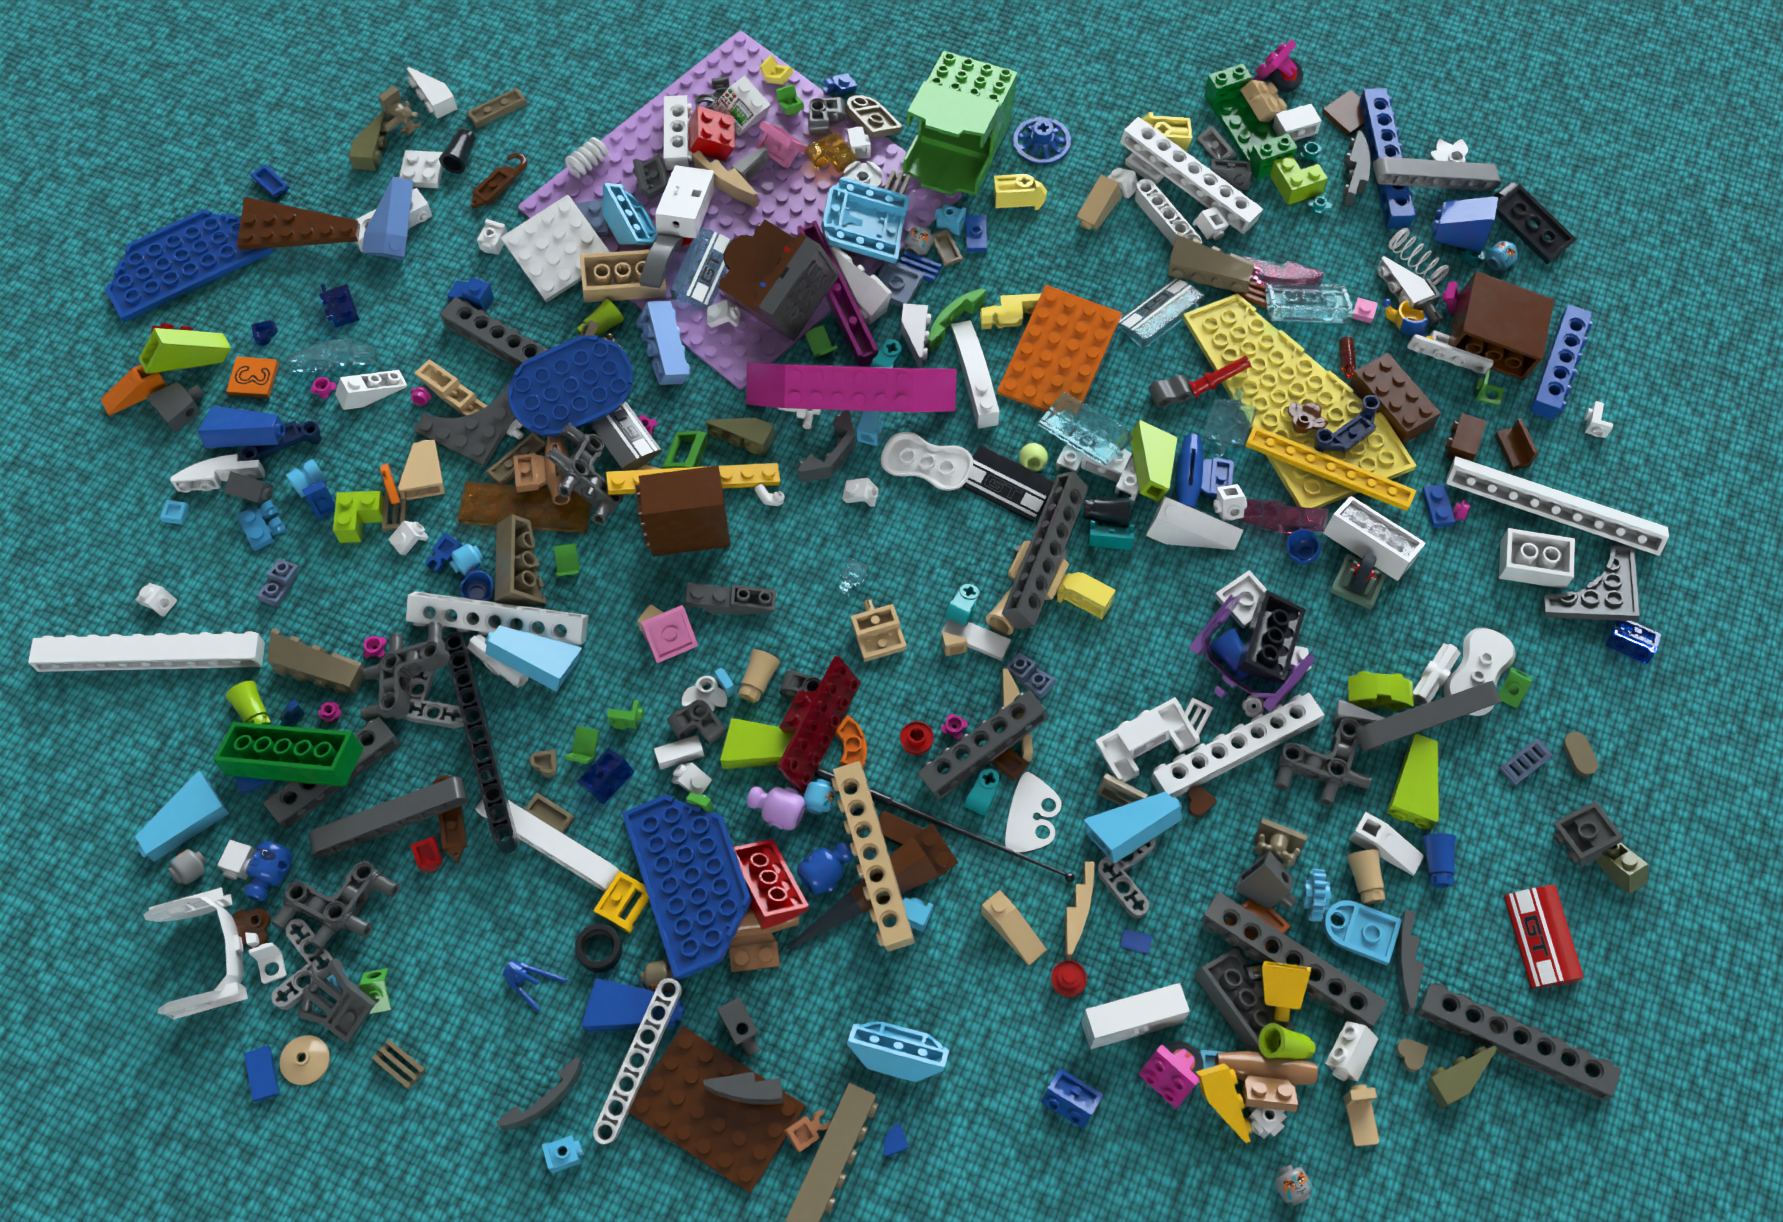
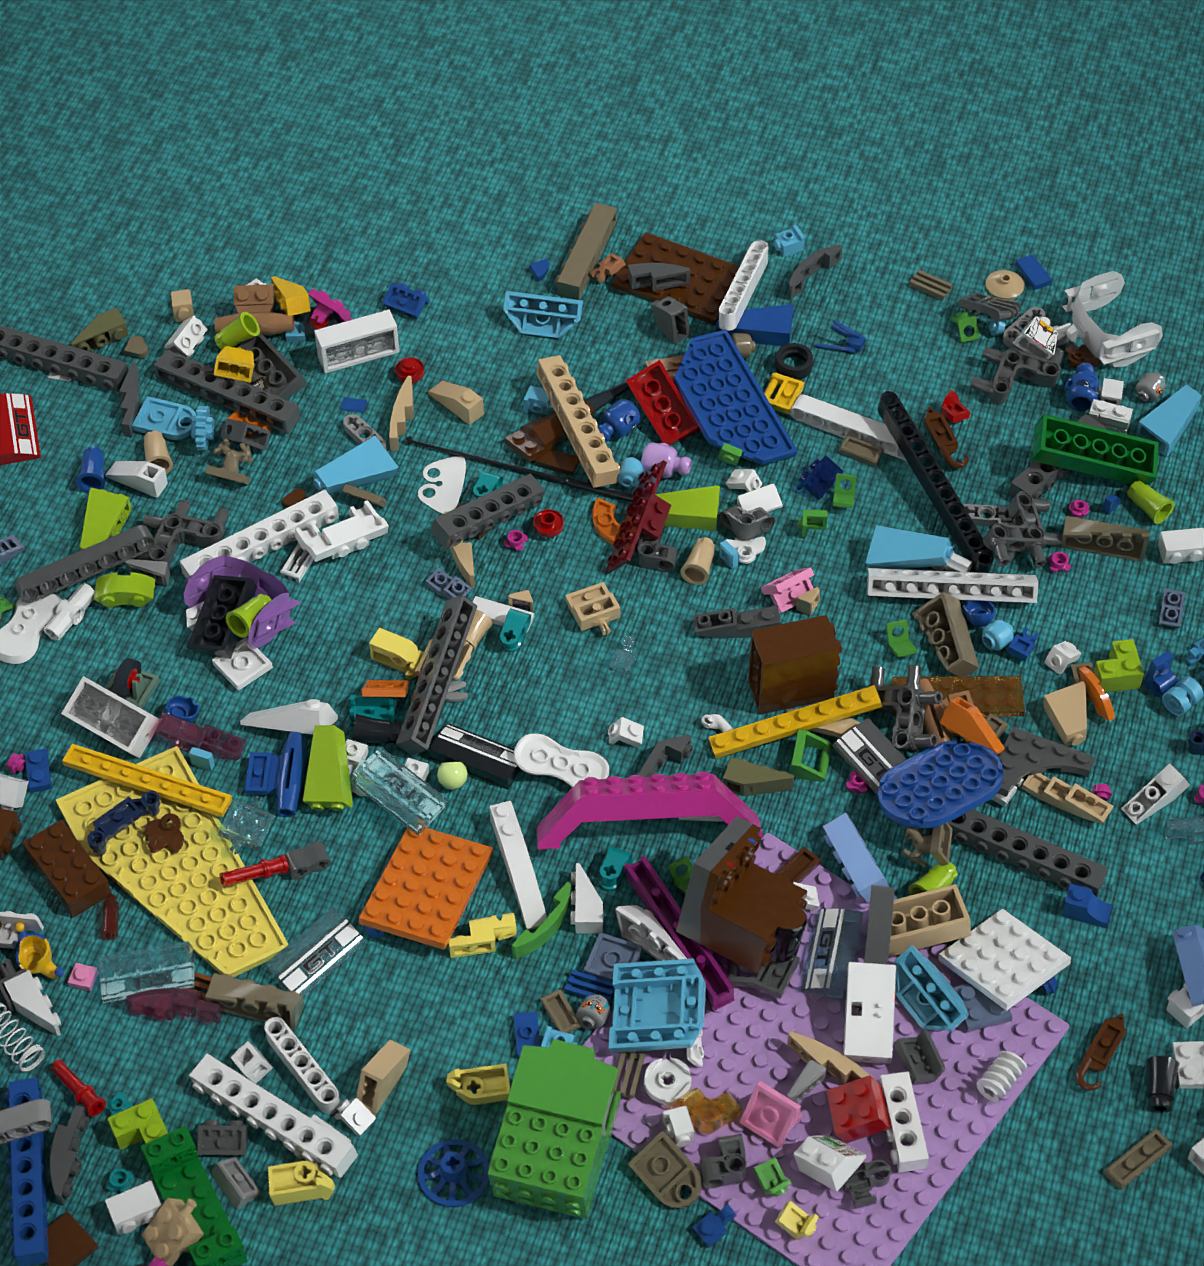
camera: 175 degrees right, 10 degrees down
(251, 823) = (1111, 415): none -> white brick
(296, 933) = (1038, 338): none -> white torso
(387, 817) = (991, 427): dark grey beam -> none
(489, 238) = (1084, 976): white brick -> none
(524, 442) = (968, 722): none -> orange slope
(545, 762) = (876, 488): dark tan tile -> none
(720, 344) = (799, 866): none -> reddish brown tile
(1098, 548) = (385, 688): none -> orange tile
(1230, 502) = (248, 728): white brick -> none
(1242, 616) = (242, 618): none -> lime plant
(1278, 494) = (201, 758): none -> medium azure tile
(1293, 1185) = (239, 263): light grey head -> none
(1350, 210) = (82, 1093): none -> red pin

